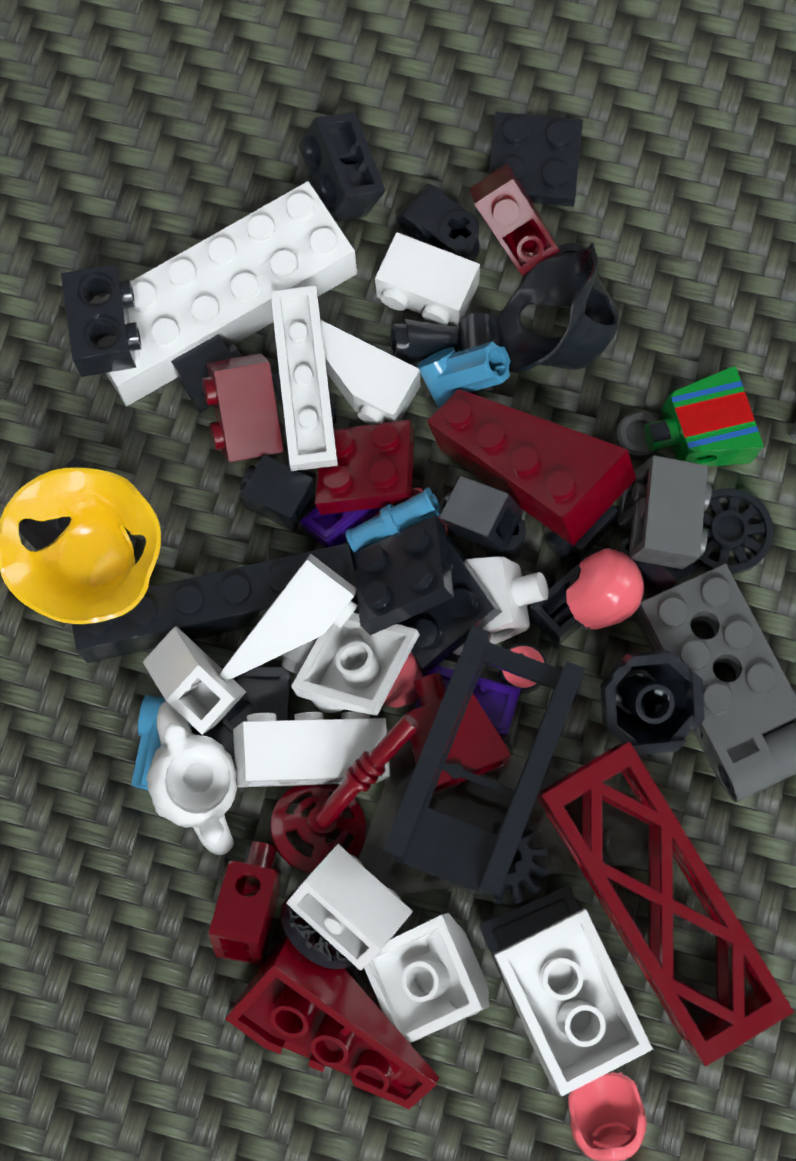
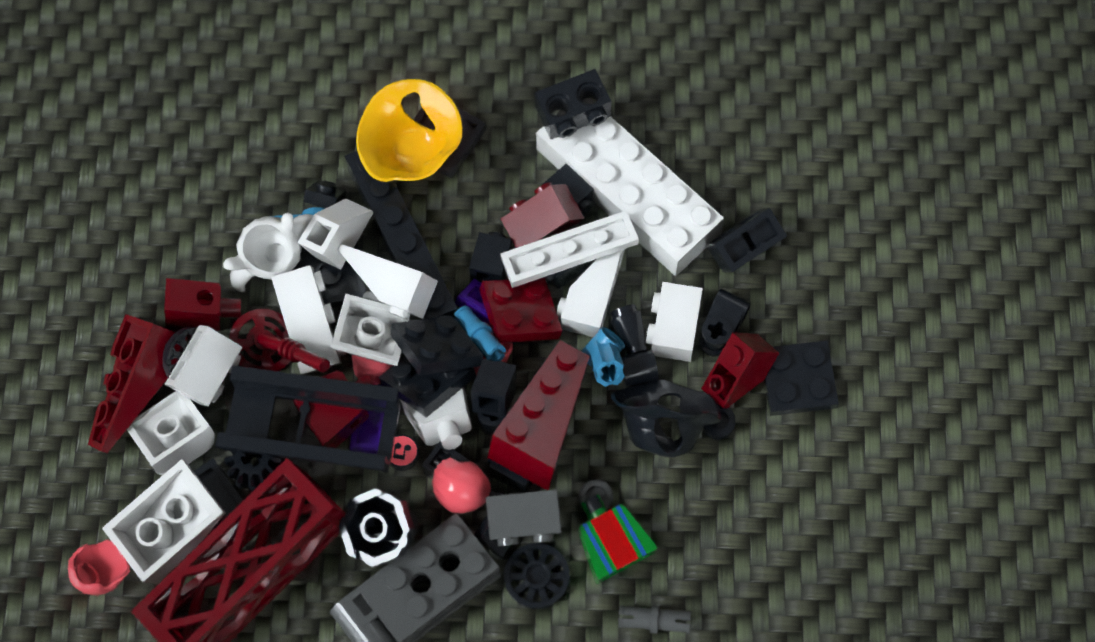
camera: 75 degrees right, 5 degrees down
(120, 697) = (324, 194): none -> black plate

